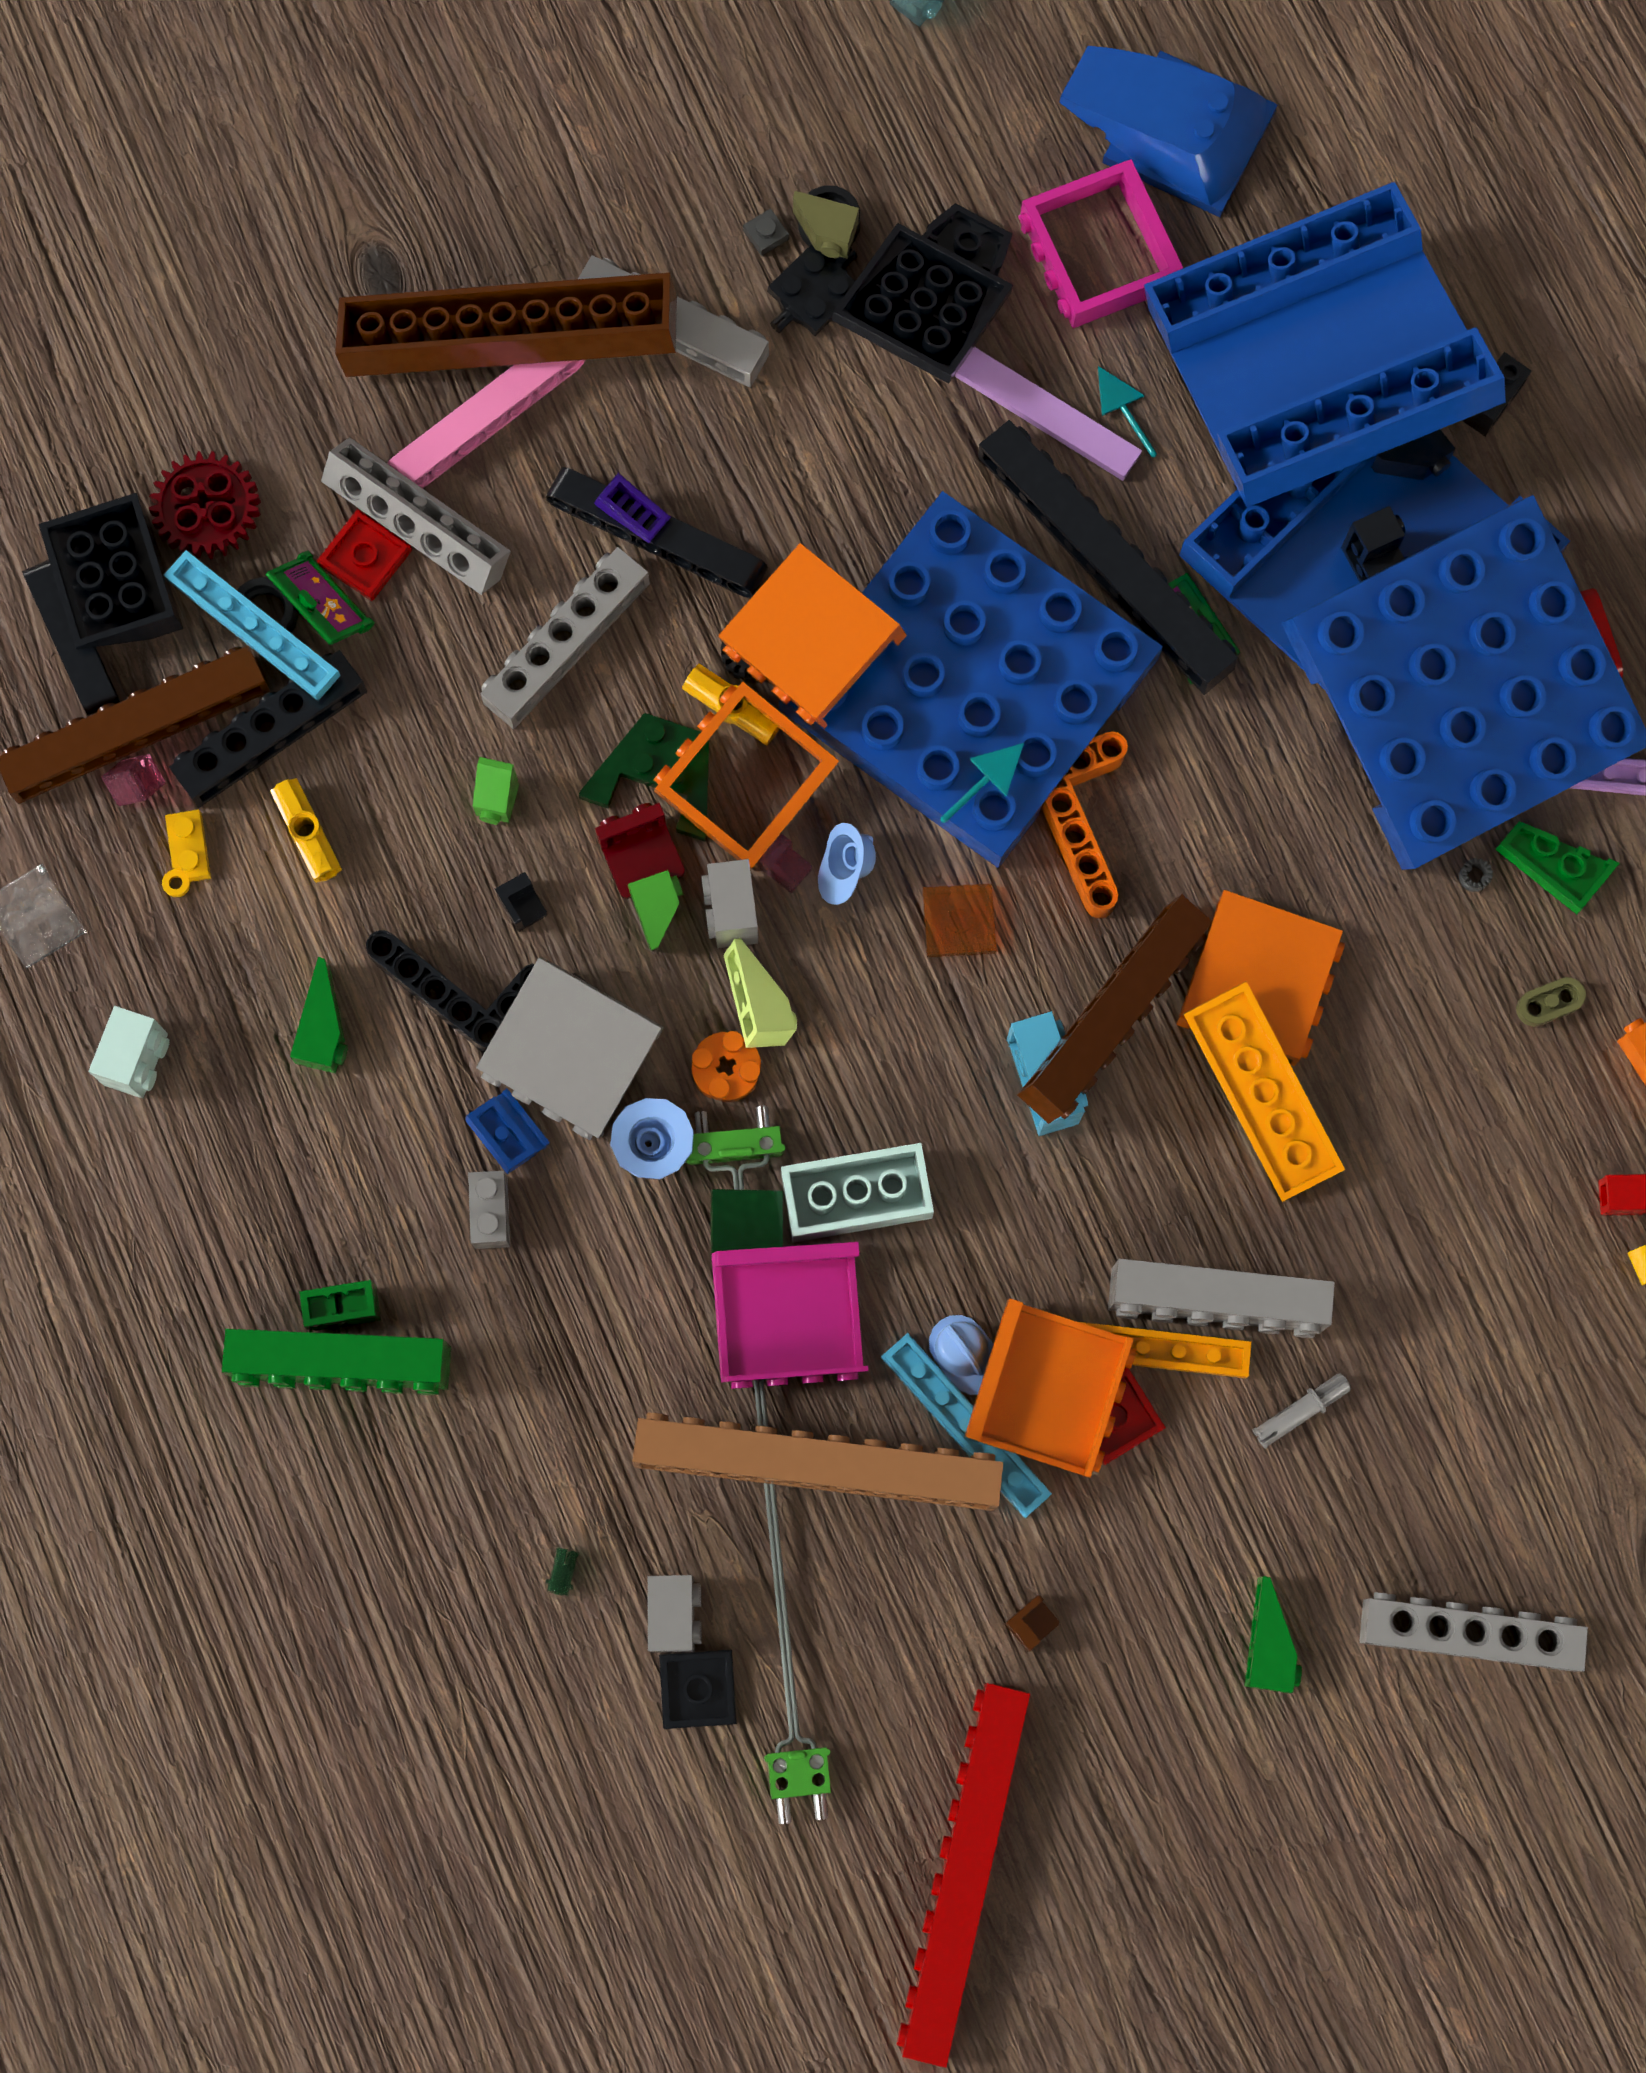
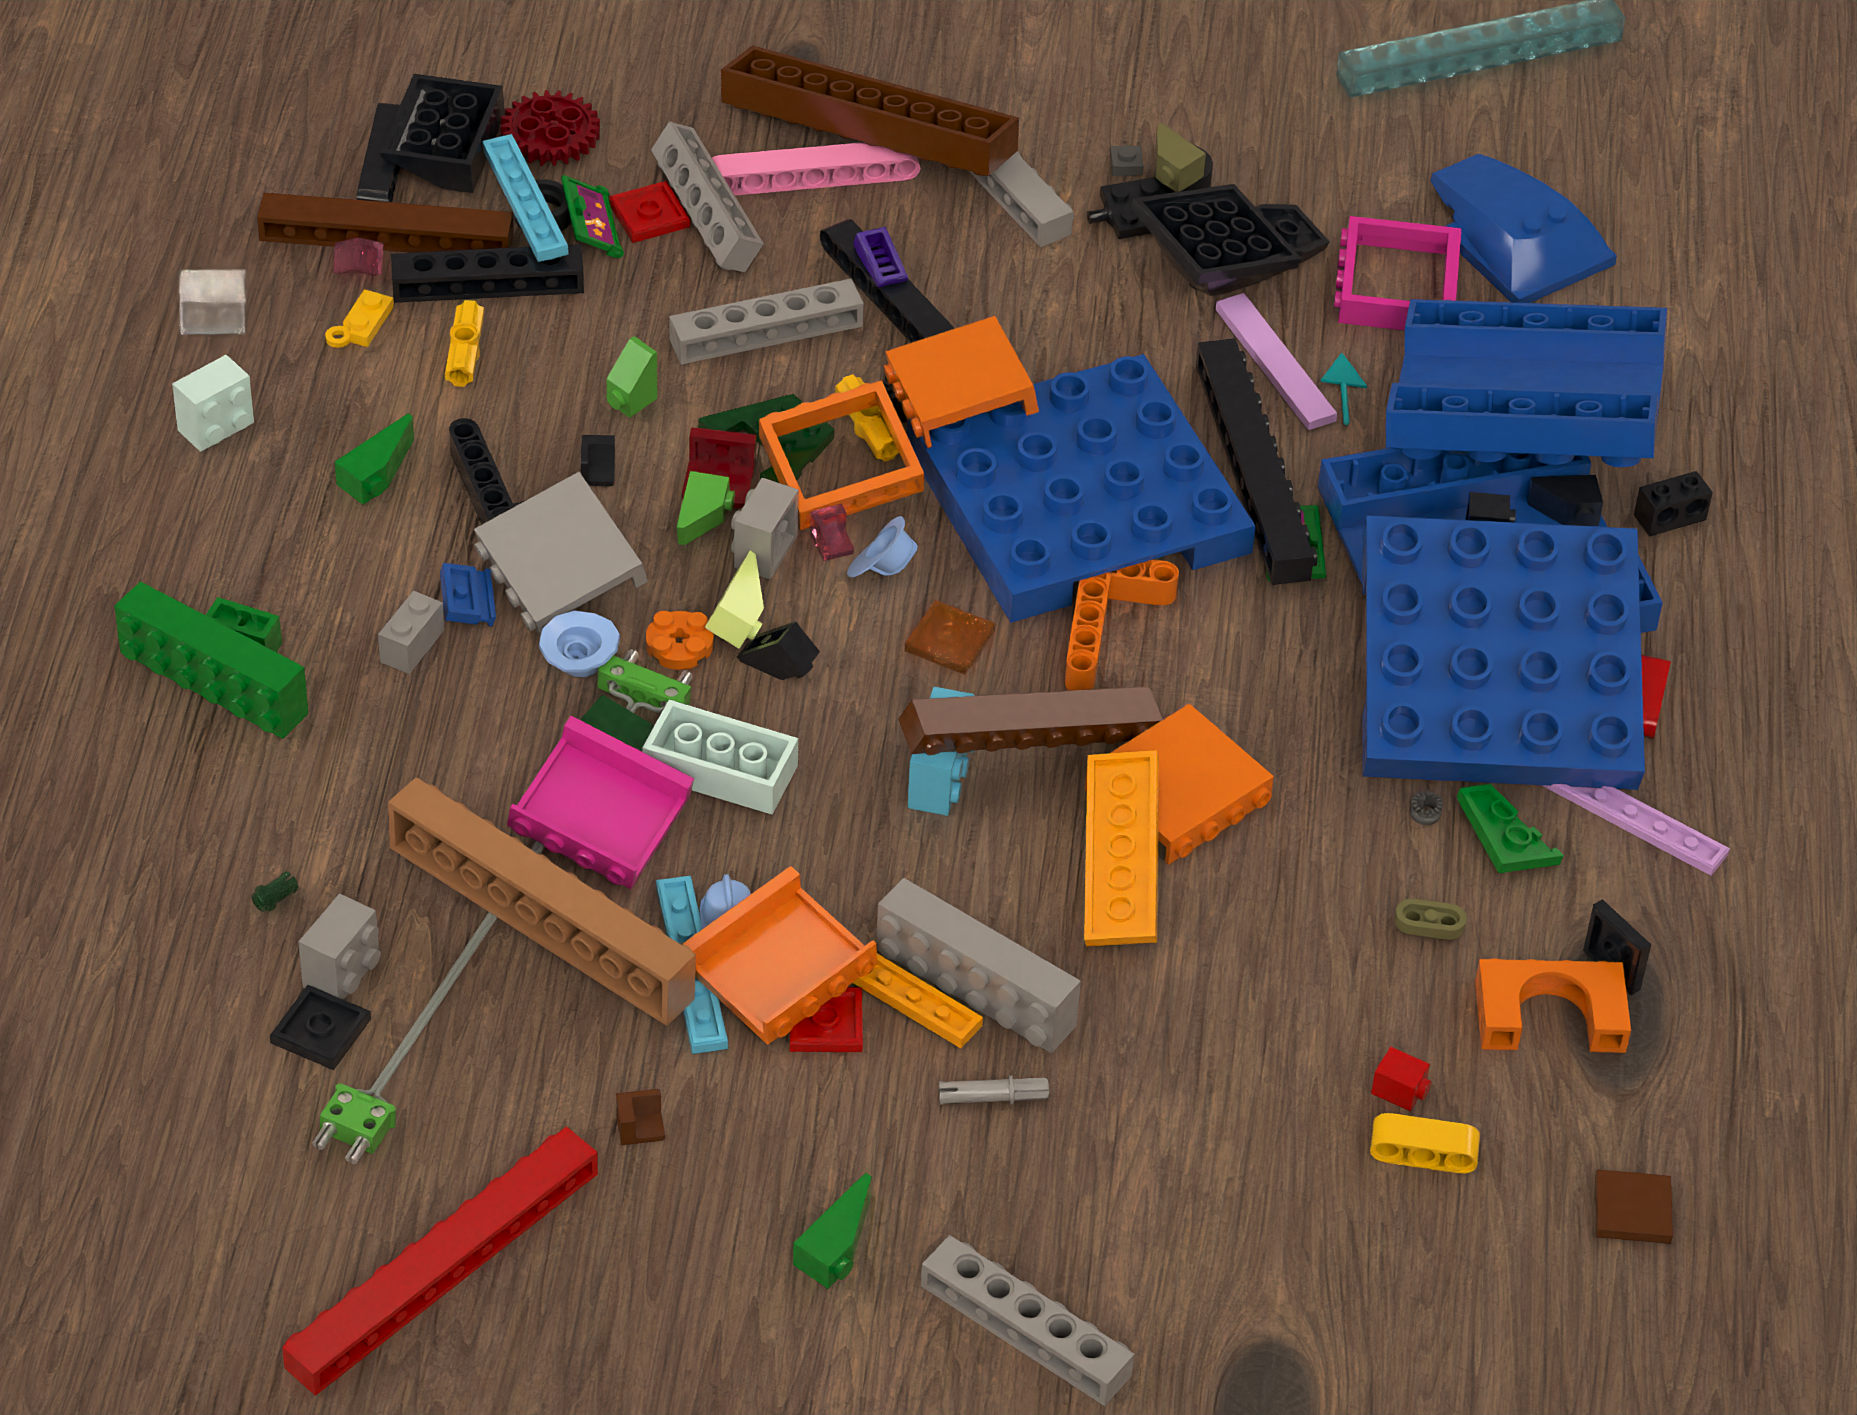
camera: 30 degrees right, 30 degrees down
(829, 1035) = (781, 652): none -> black slope
(997, 768) = (1048, 525): teal piece -> none

